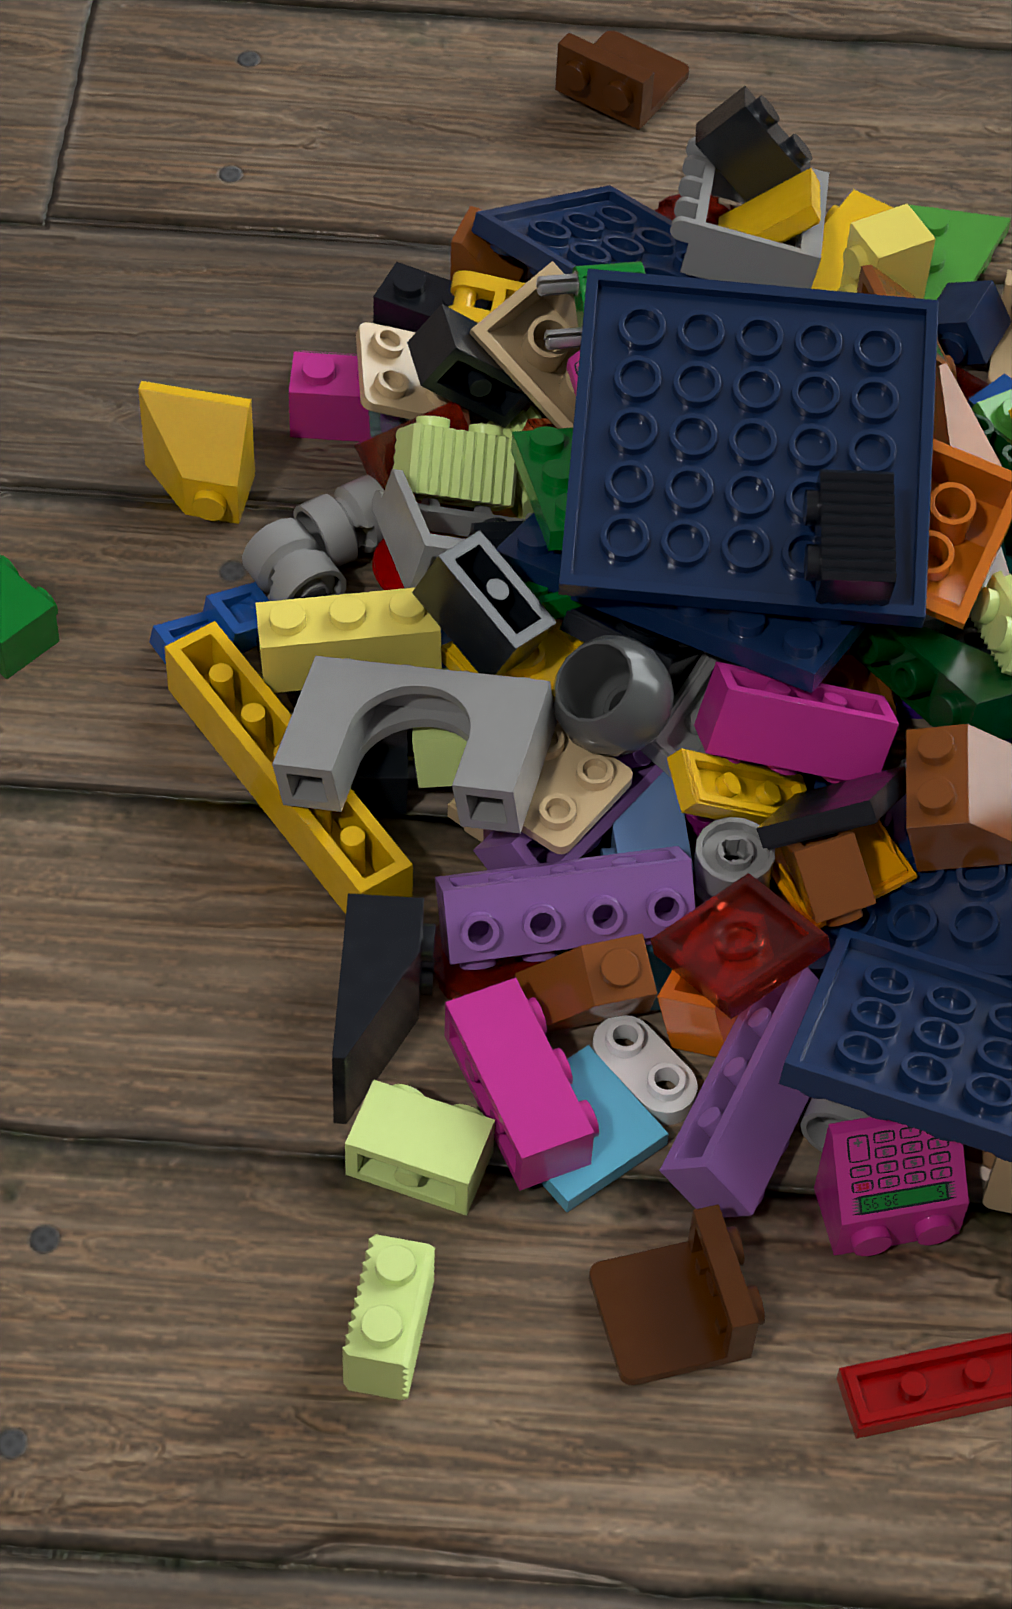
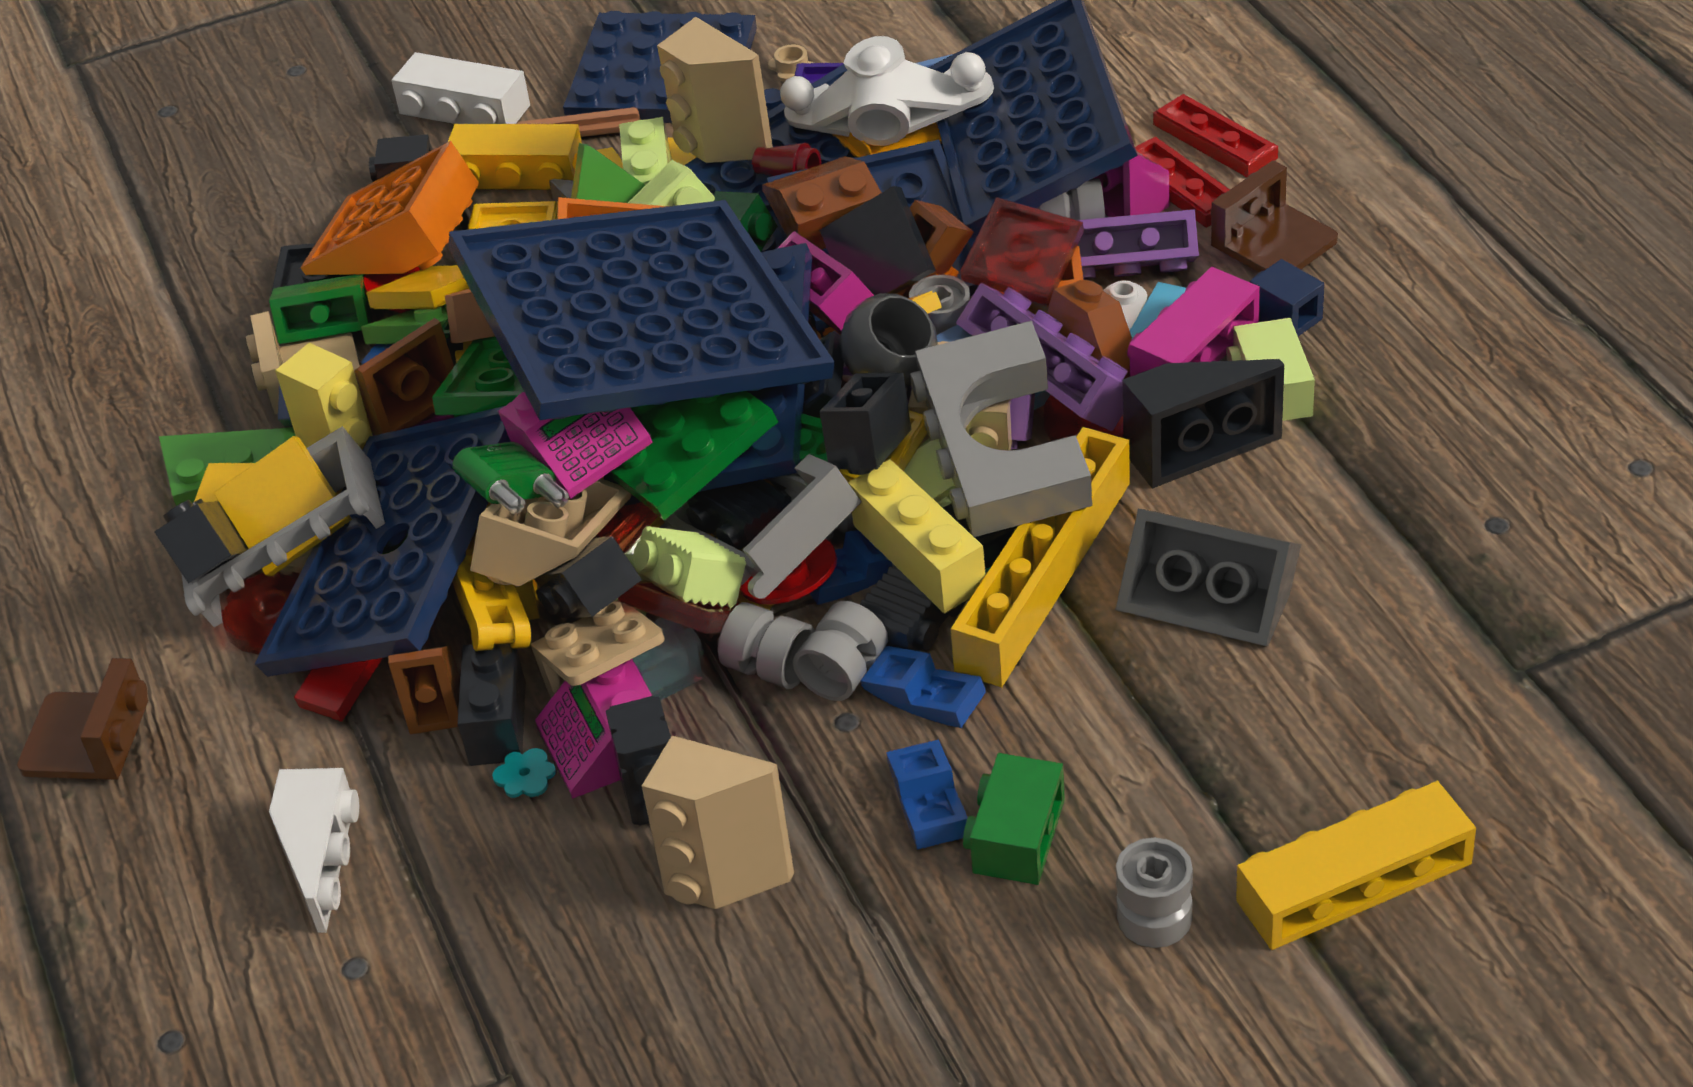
camera: 110 degrees left, 10 degrees down
(96, 581) = (927, 793): none -> blue slope
(116, 343) = (716, 824): none -> tan slope
(166, 912) = (1207, 576): none -> dark grey slope
(199, 448) = (767, 733): yellow slope -> none
(254, 364) = (638, 739): none -> black brick
(341, 325) = (524, 773): none -> teal plant
(370, 166) = (312, 824): none -> white slope
(388, 1317) = (1402, 328): yellowish green brick -> none
(536, 1235) = (1290, 294): none -> dark blue brick
(853, 537) = (699, 217): black brick -> none
(867, 1285) = (1188, 184): none -> red tile

